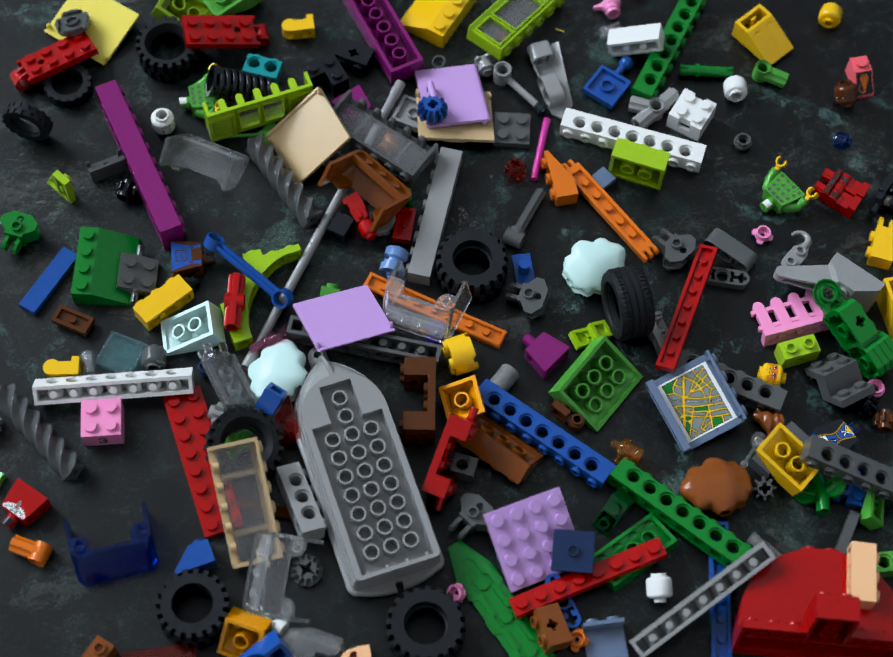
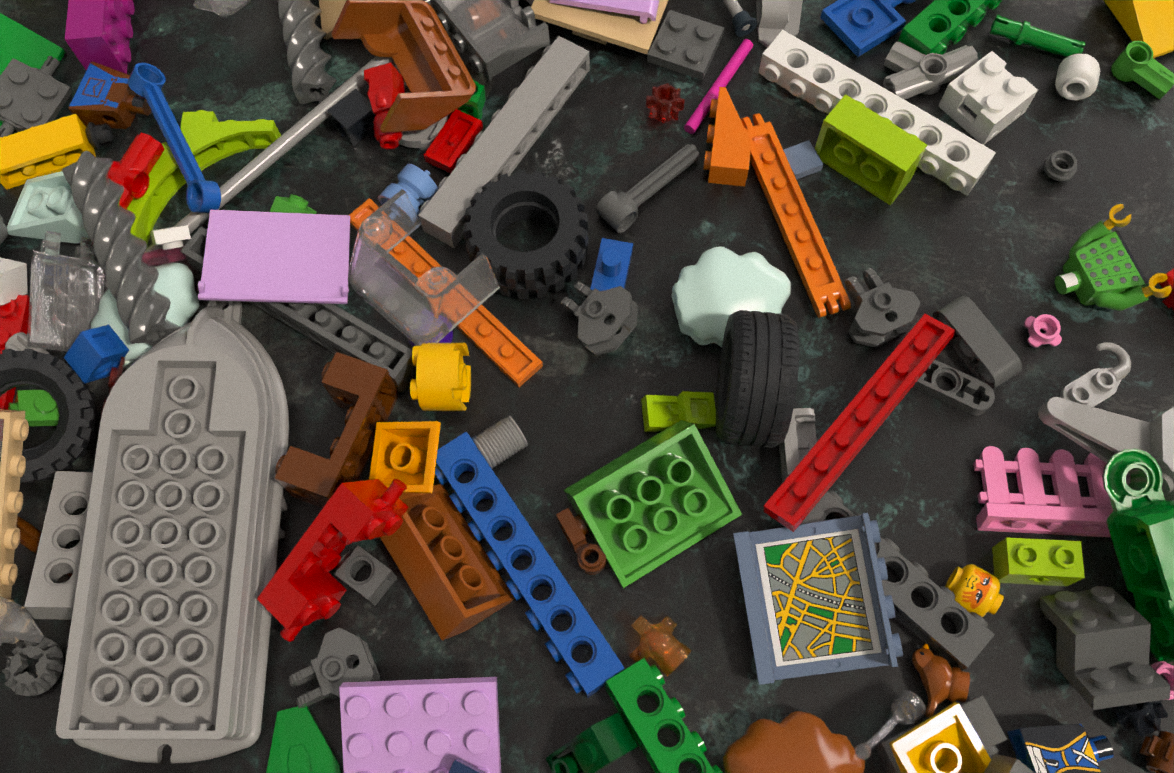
camera: 25 degrees right, 5 degrees up
(265, 342) = (118, 250): none -> dark grey piece
(278, 325) = (170, 237): none -> white plate
(544, 352) = (587, 418): magenta torso -> none

